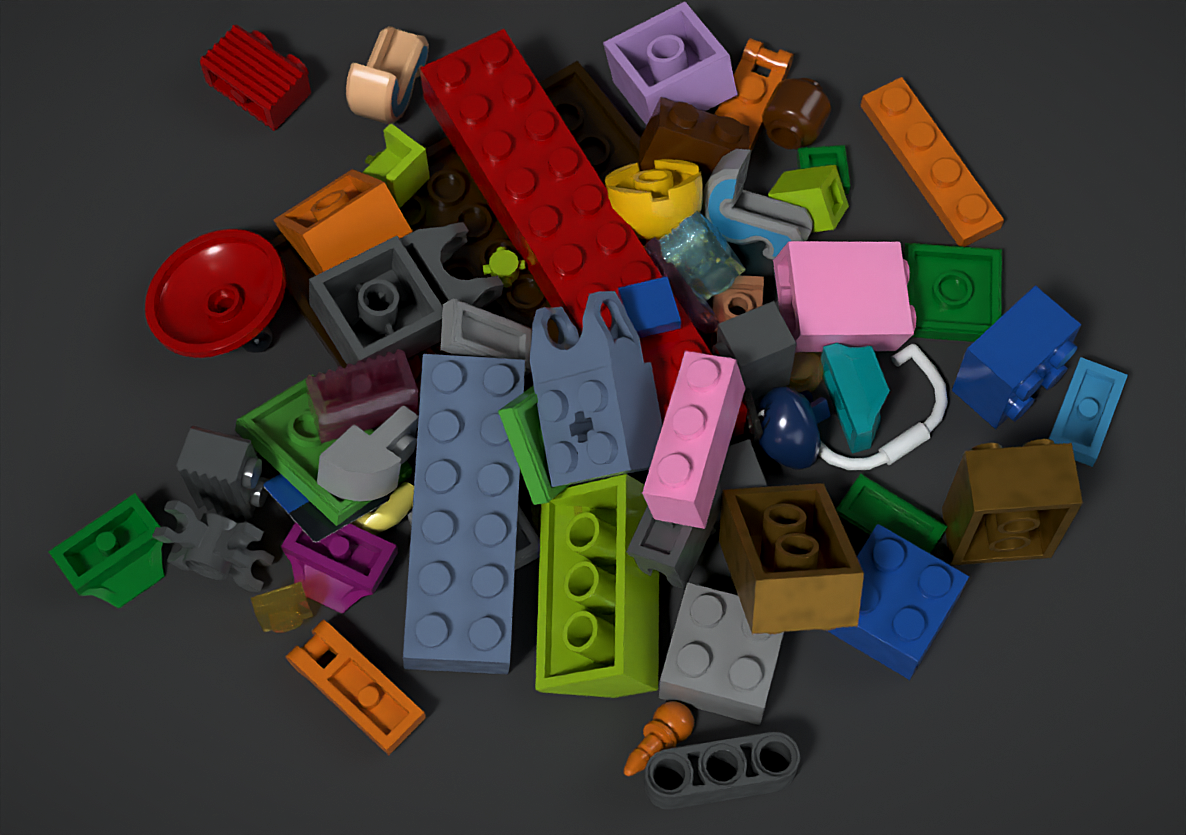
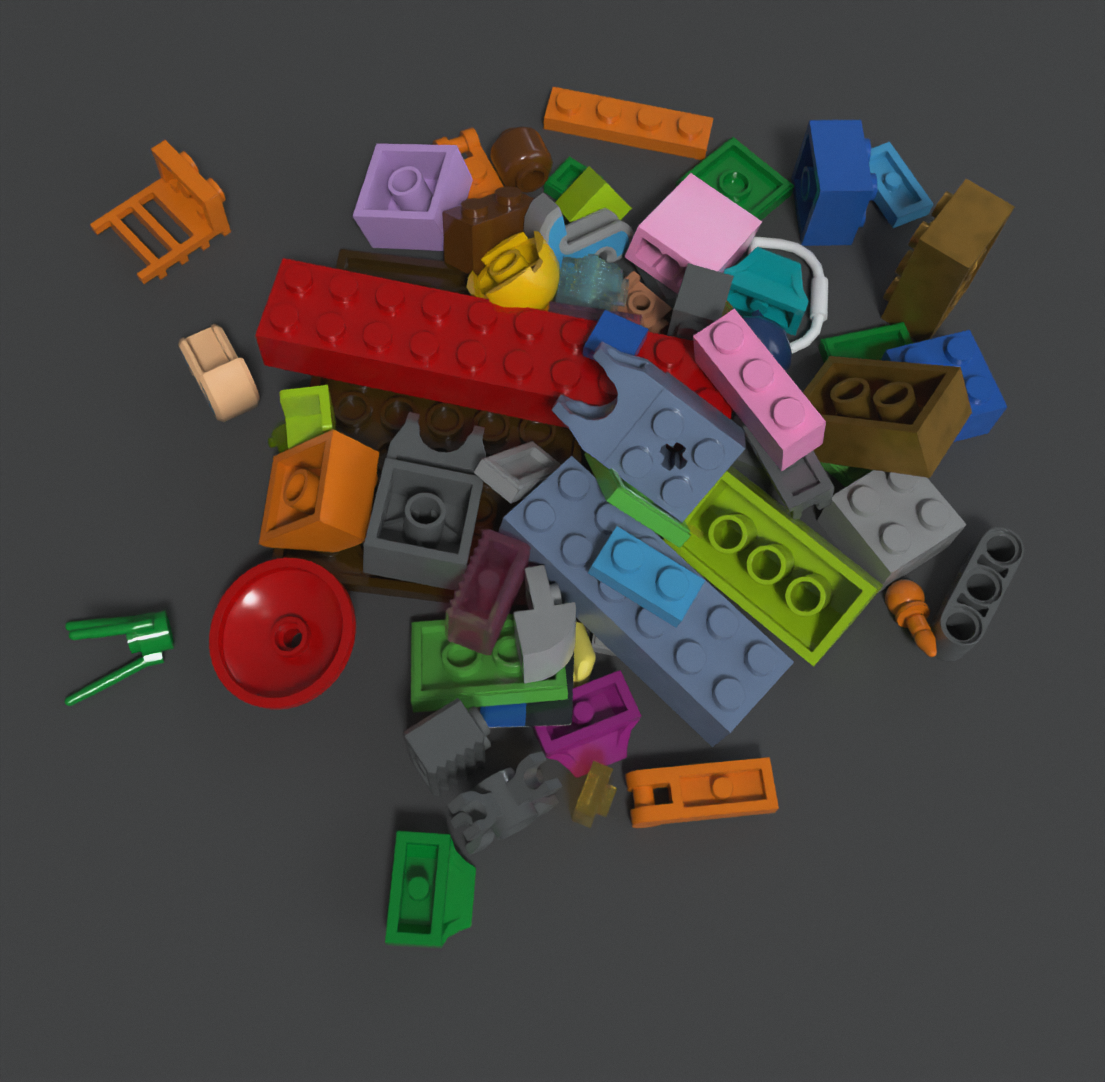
camera: 55 degrees left, 0 degrees up
(144, 210) = (145, 634): none -> green plant
(256, 76) = (116, 462): red brick -> none
(465, 491) = (646, 576): none -> dark azure plate
(505, 265) = (460, 420): lime piece -> none

